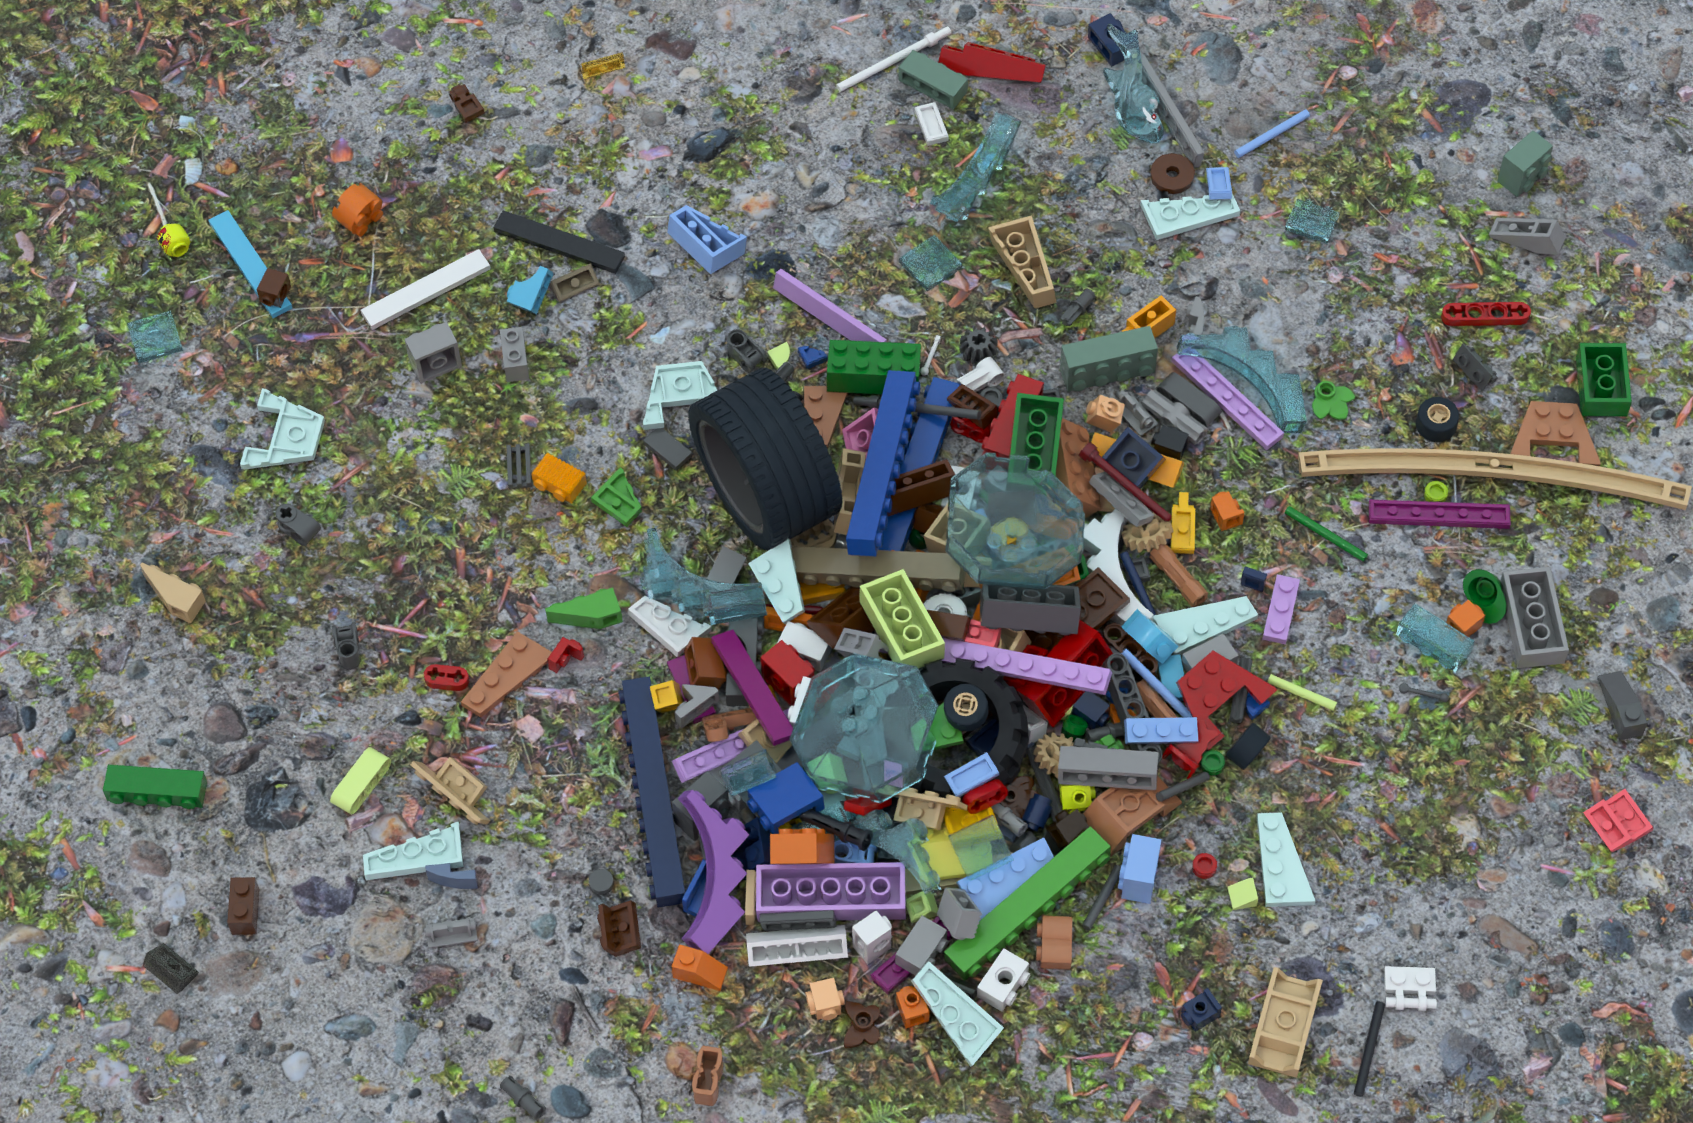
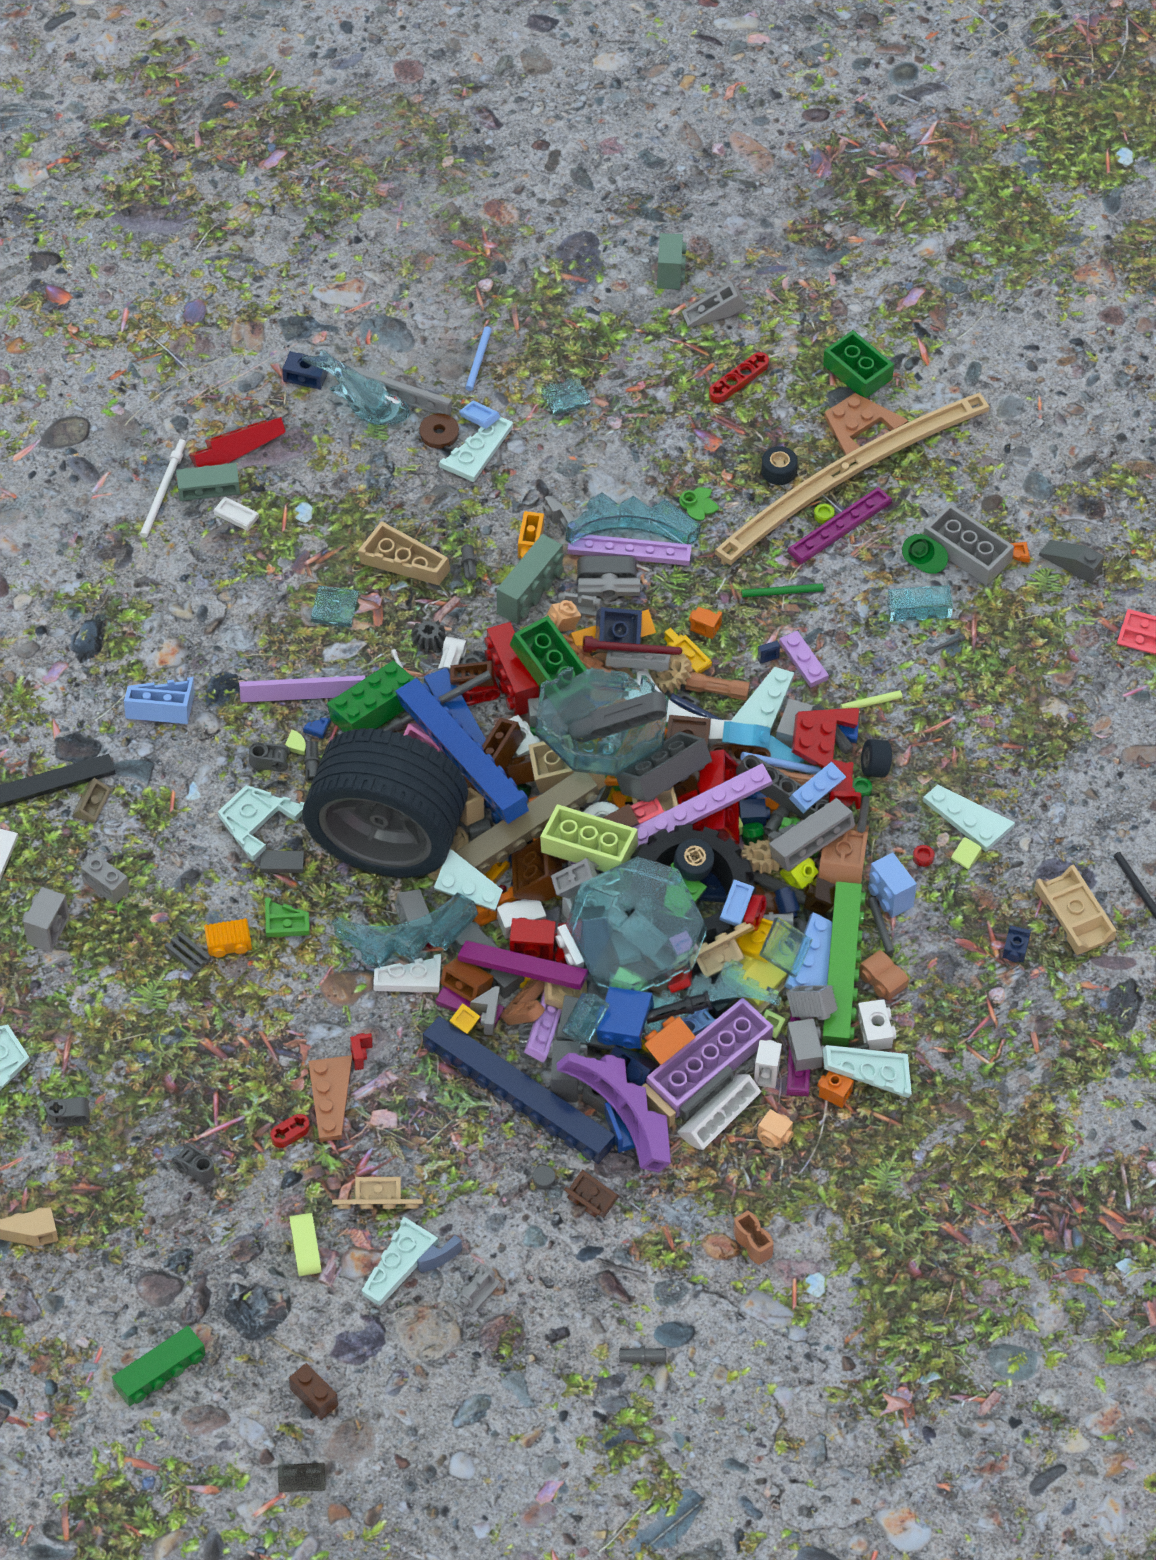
camera: 45 degrees left, 5 degrees down
(530, 293) = (71, 831): medium azure arch -> none
(589, 611) = (348, 1007): bright green slope -> none
(698, 968) = (670, 1178): orange slope -> none
(862, 1024) = (815, 1126): reddish brown animal -> none
(973, 181) = (309, 516): clear light blue arch -> none
(1028, 533) = (619, 717): none -> dark grey piece
(1170, 442) = (625, 600): black brick -> none
(1410, 981) = (1122, 825): white plate -> none
(1466, 618) = (926, 575): orange brick -> none
(1473, 367) = (767, 416): dark grey hinge -> none
(1580, 659) = (1021, 551): none -> orange tile

